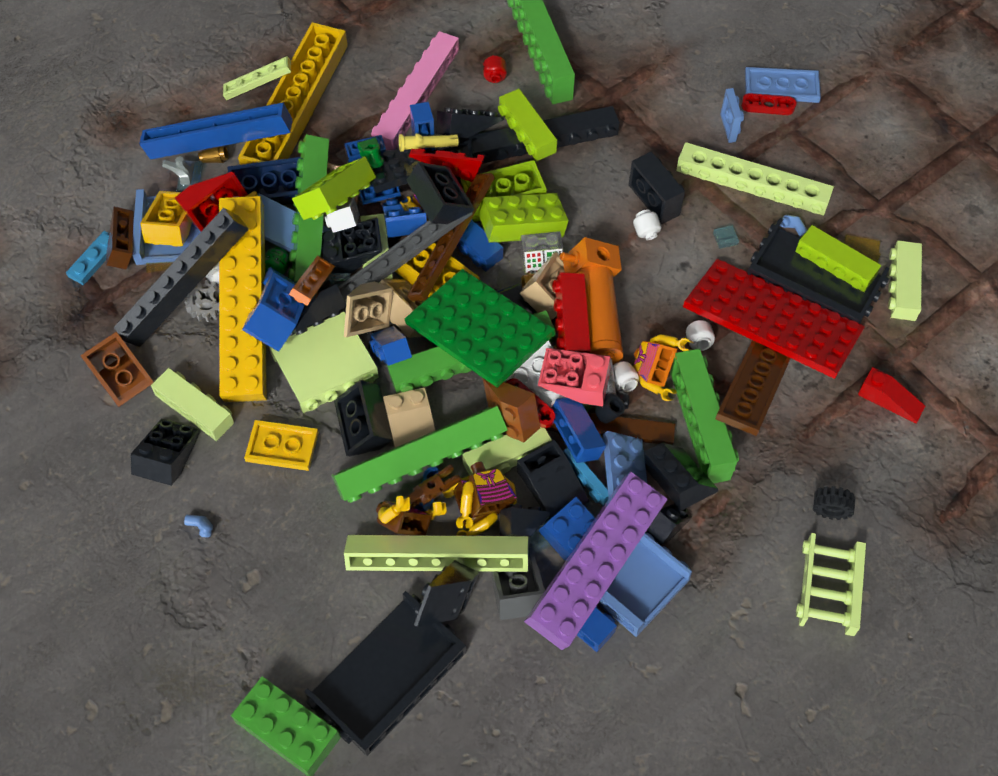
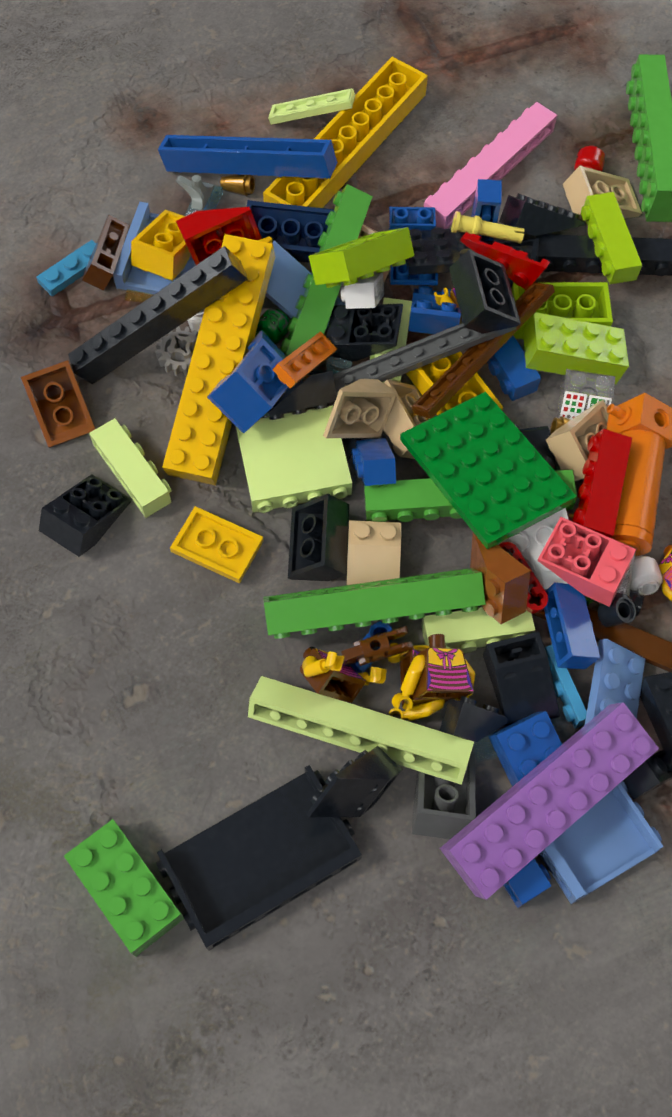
camera: 15 degrees right, 5 degrees up
(201, 522) = (100, 610): medium blue arm -> none
(371, 150) = (418, 223): green piece -> none
(501, 84) = (592, 182): none -> tan slope

